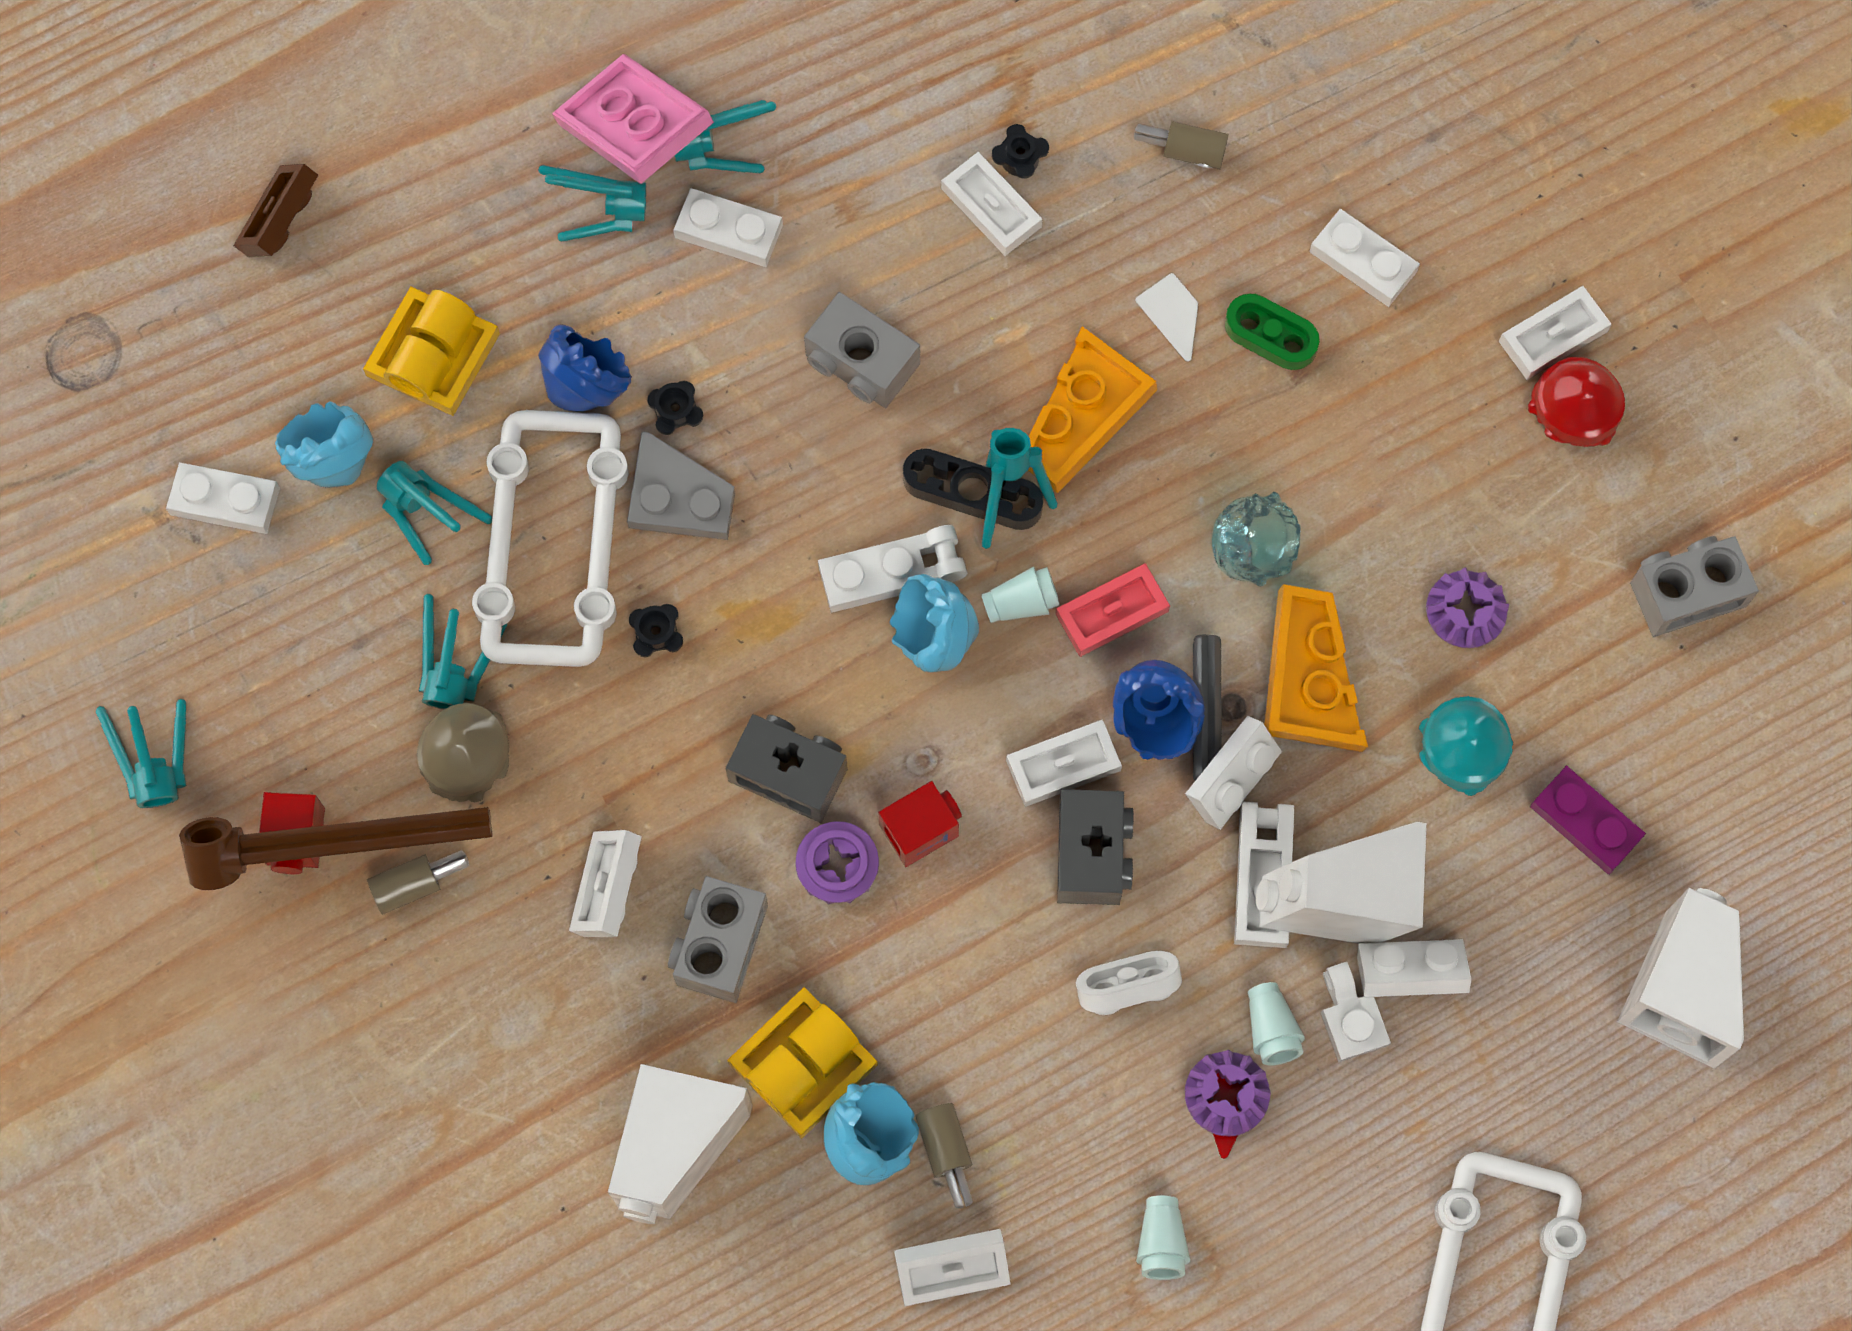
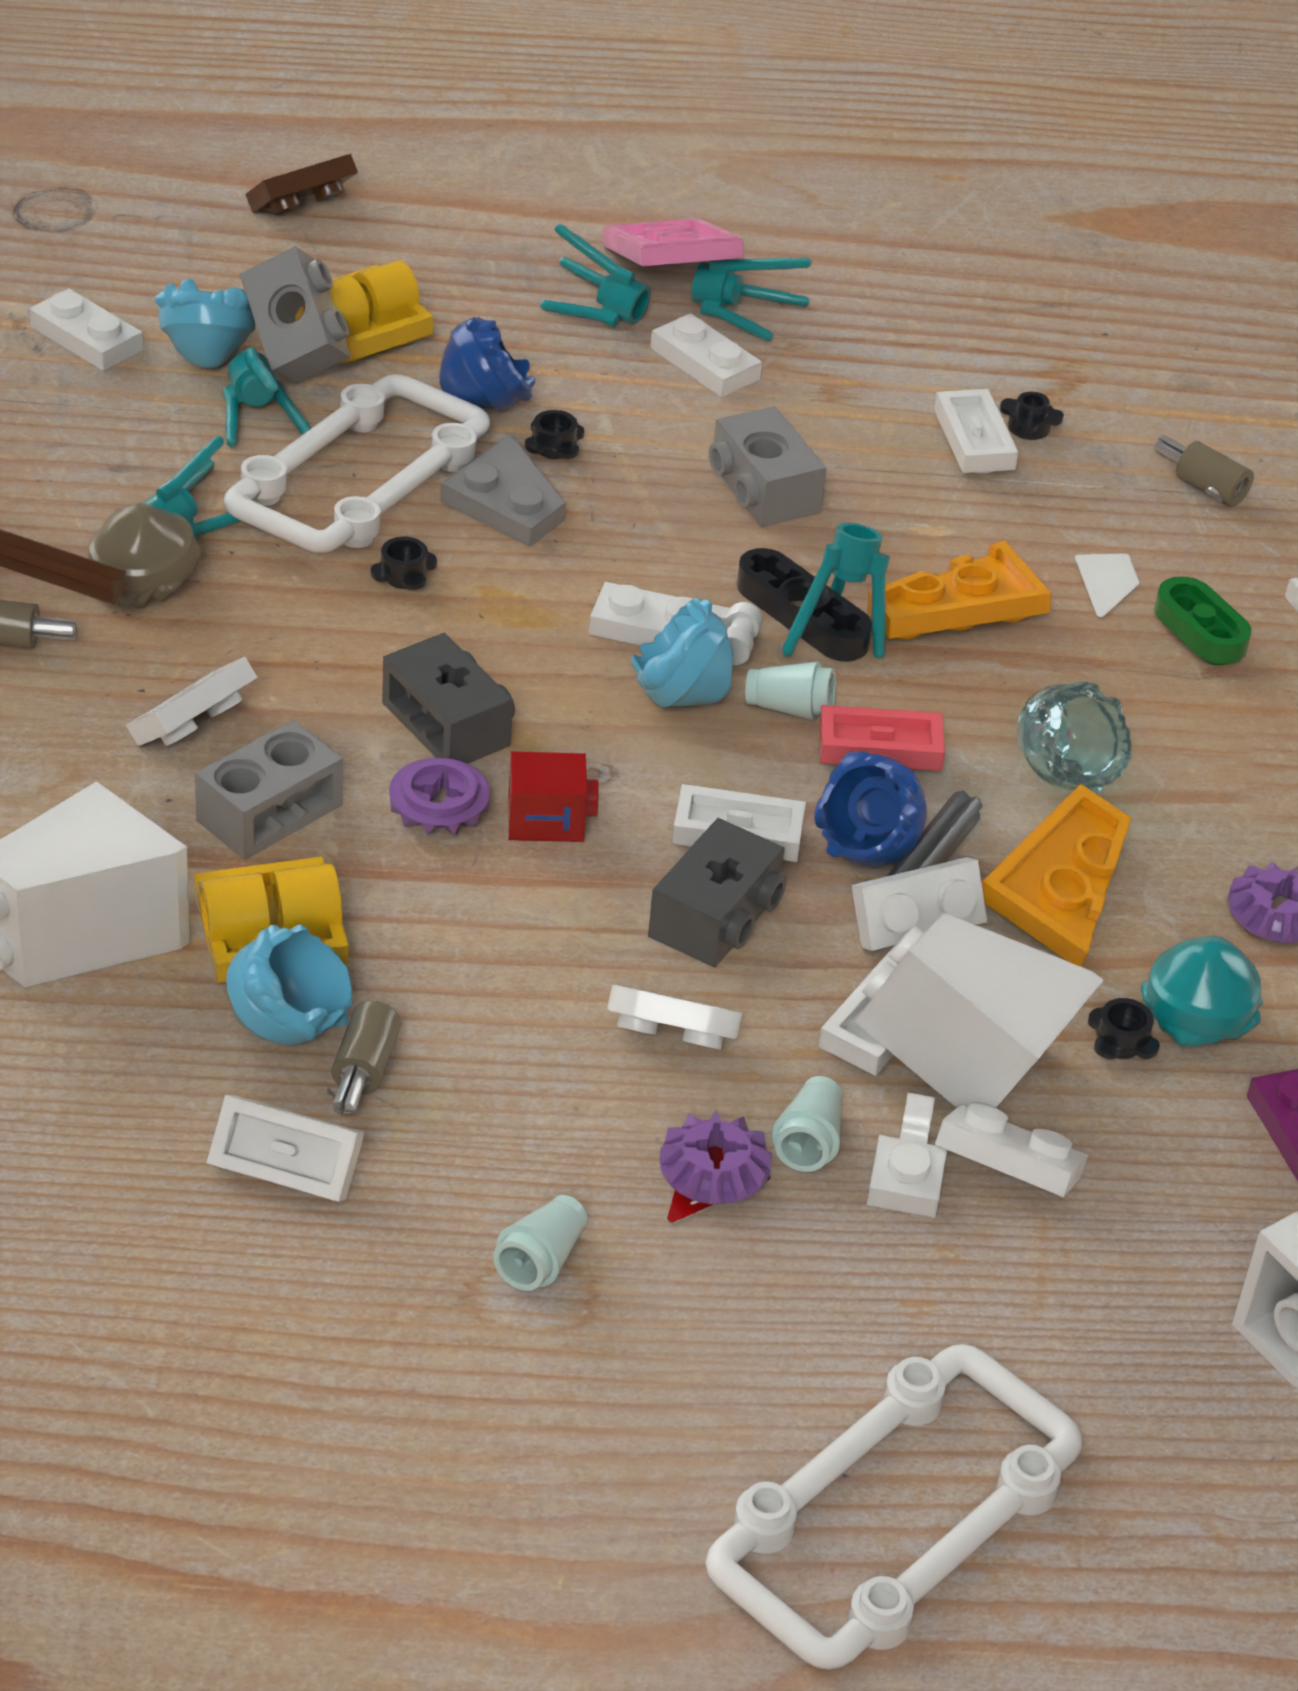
camera: 25 degrees right, 30 degrees down
(412, 440) = (276, 294): none -> light grey brick
(1432, 791) = (1123, 1030): none -> black plate

